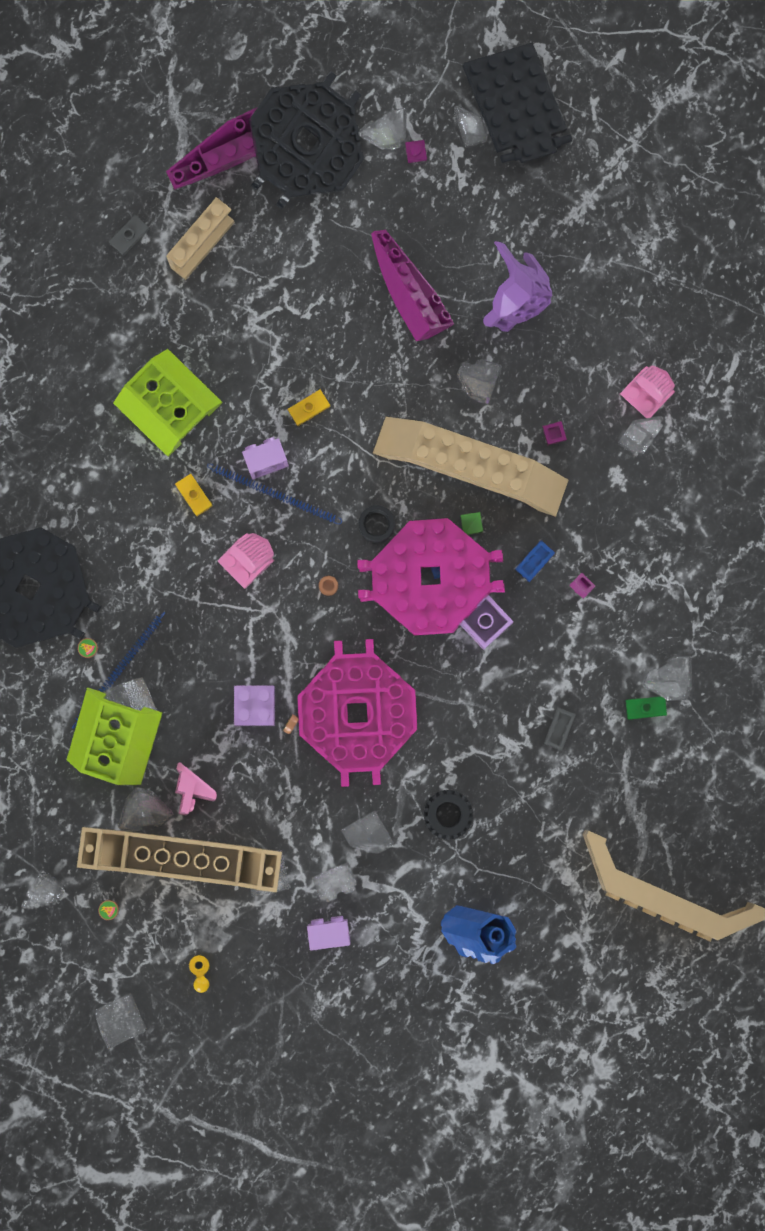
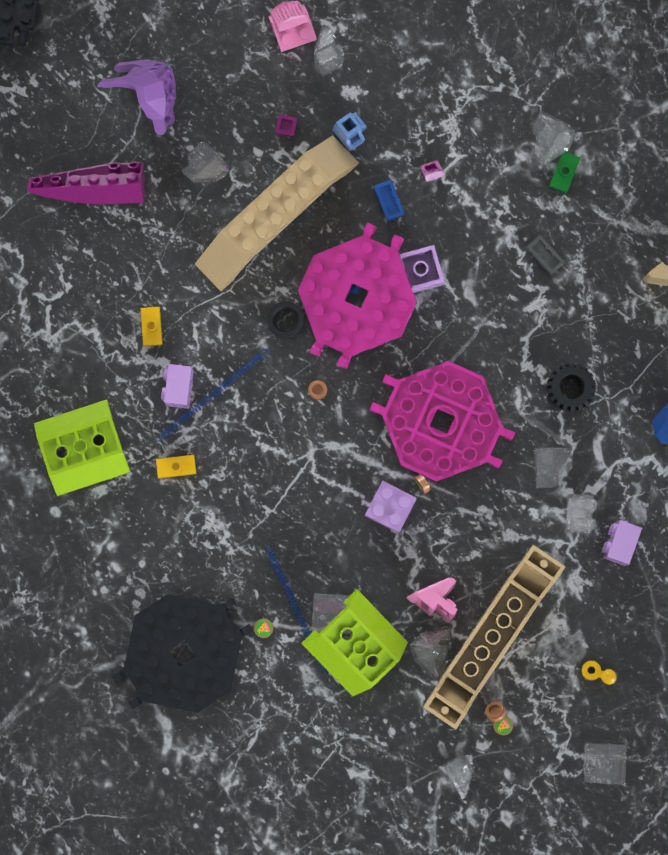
camera: 65 degrees left, 0 degrees up
(117, 896) = (495, 711): none -> nougat tile
(247, 558) = (257, 447): bright pink piece -> none
(472, 523) = (328, 237): bright green slope -> none
(580, 492) = (350, 130): none -> medium blue brick

